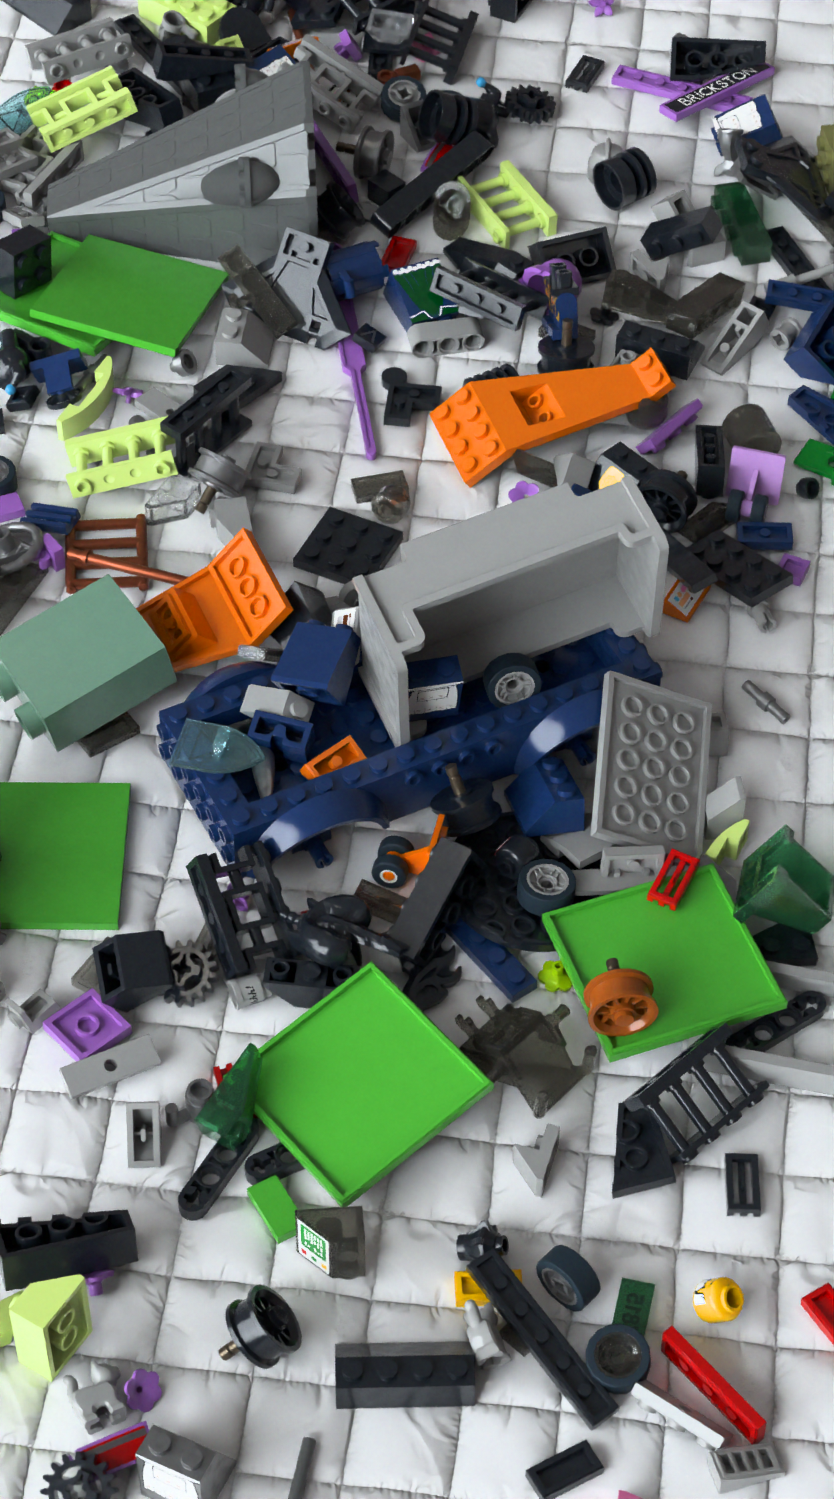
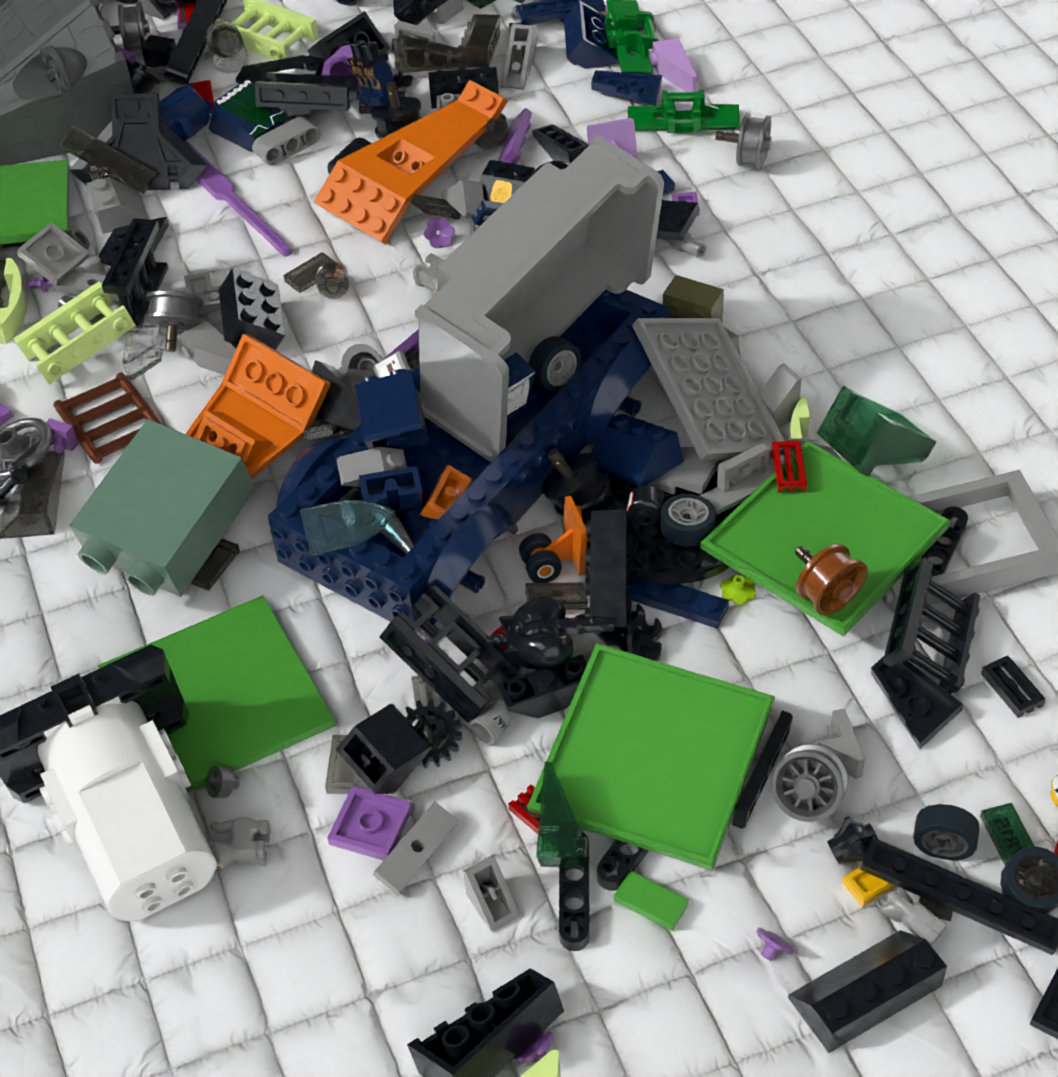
camera: 25 degrees left, 0 degrees up
(32, 1011) = (311, 832): light grey bracket -> none
(52, 518) = (42, 406): dark blue tile -> none
(87, 557) = (102, 422): copper bar -> none
(149, 369) = (53, 253): none -> light grey tile
(196, 1097) = (519, 843): flat silver piece -> none
(261, 1328) = (725, 1014): black wheel -> none
(290, 505) = (251, 308): none -> black brick
(332, 1240) = (730, 901): clear smoke slope -> none
(347, 547) = (319, 329): black plate -> none
(351, 1295) = (773, 944): none -> medium lavender plant
(369, 338) = (223, 164): black tile -> none
(393, 374) = (264, 187): black tile -> none
(405, 397) = (286, 199): black plate -> none
(452, 1145) = (762, 770): none -> black tile
(476, 1174) = (809, 782): none -> flat silver wheel
(525, 1052) = (769, 659): clear smoke piece -> none
(707, 678) = (693, 299): none -> olive brick
(751, 428) = (580, 111): clear smoke piece -> none
(766, 701) = (742, 307): flat silver bar -> none
(782, 336) = (552, 43): light grey bush -> none
(787, 946) = (905, 479): black wing -> none
(807, 488) = (652, 141): black hinge -> none

